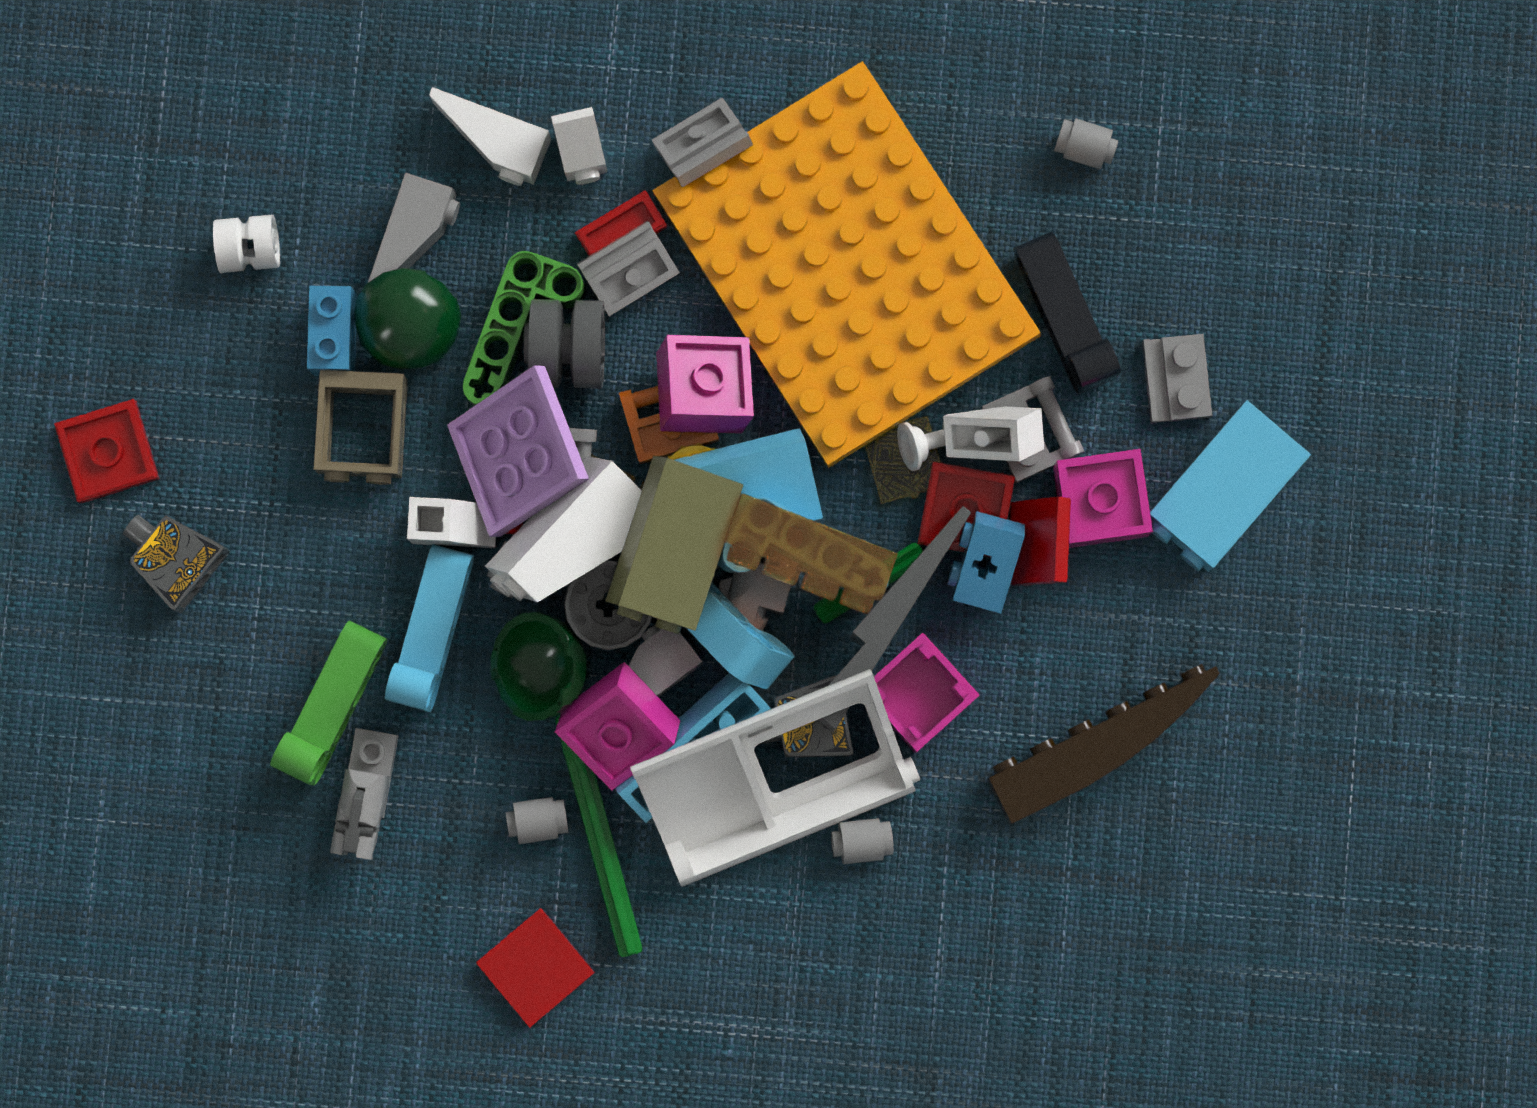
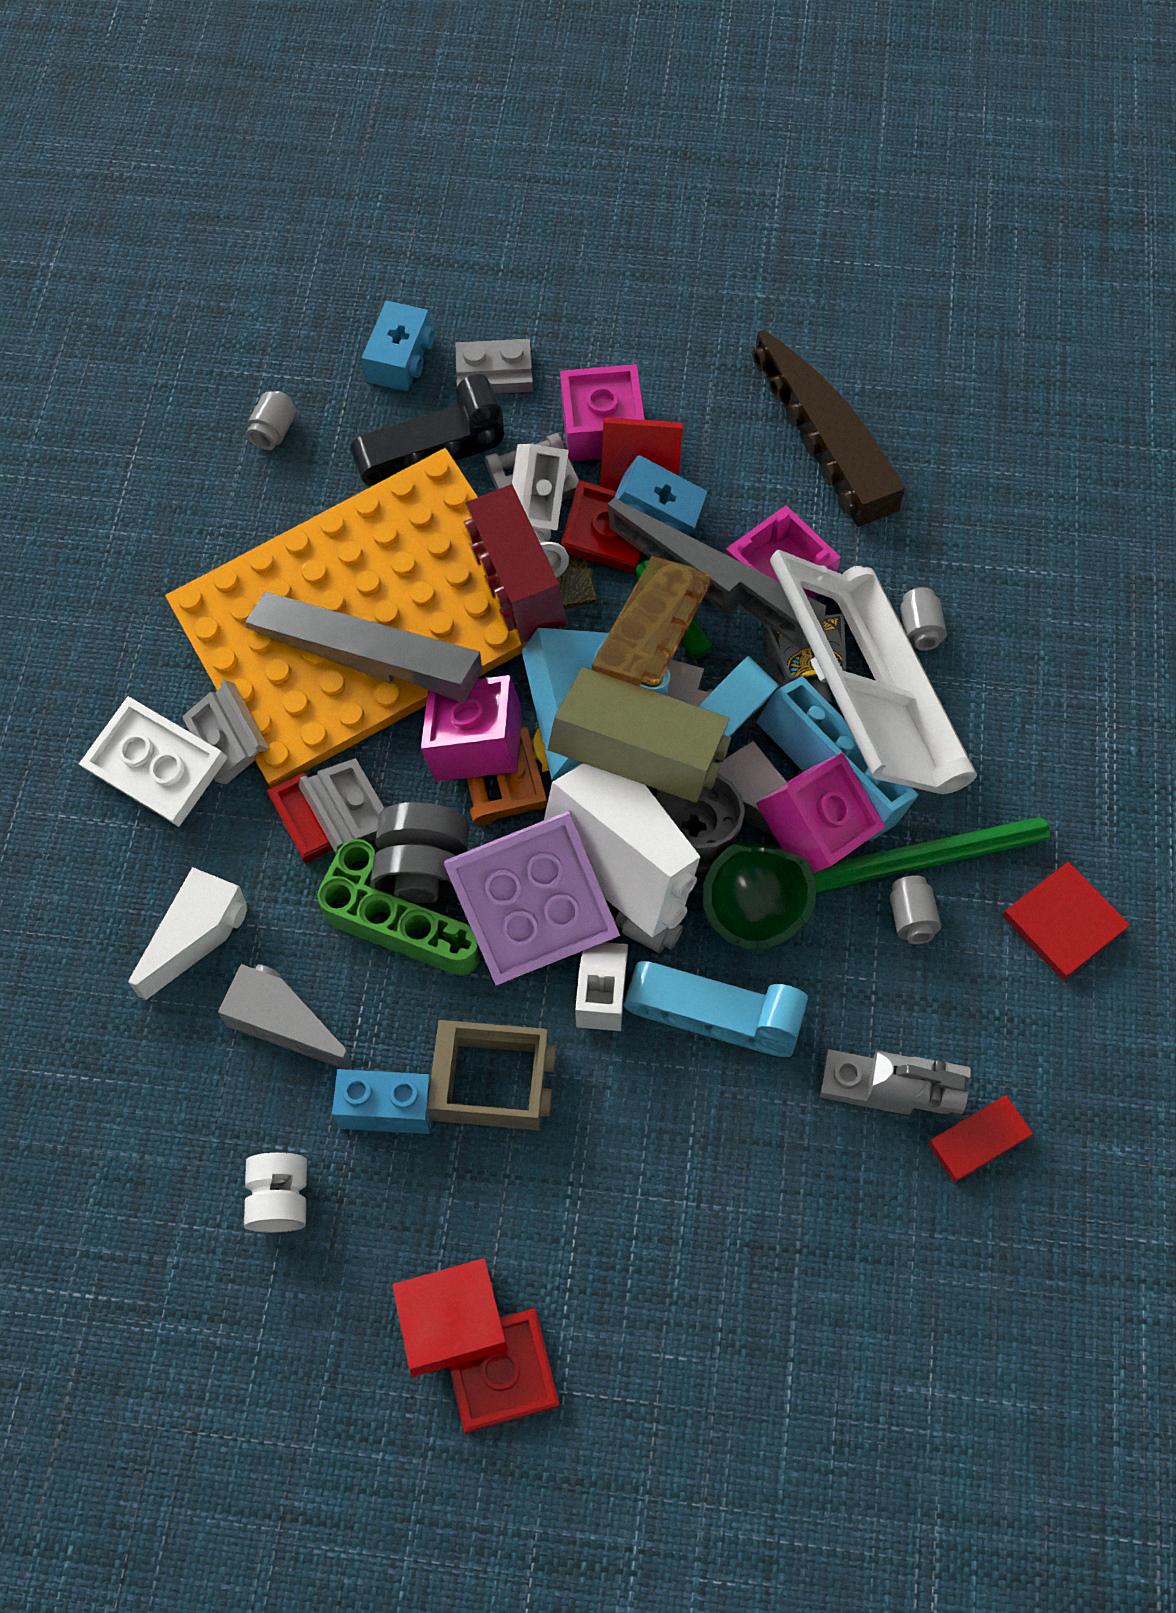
camera: 90 degrees left, 20 degrees down
(145, 403) = (448, 1317): none -> red tile
(173, 559) = (630, 1288): torso -> none
(318, 873) = (980, 1139): none -> red tile
(330, 704) = (800, 1117): bright green beam -> none
(406, 319) = (378, 1018): dark green cylinder -> none
(579, 145) = (212, 839): white slope -> none
(667, 76) = (153, 761): none -> white plate
(788, 268) = (368, 646): none -> dark grey slope
(865, 411) = (514, 563): none -> dark red brick
(1212, 263) = (397, 346): none -> dark azure brick
(1227, 487) = (592, 323): medium azure brick -> none

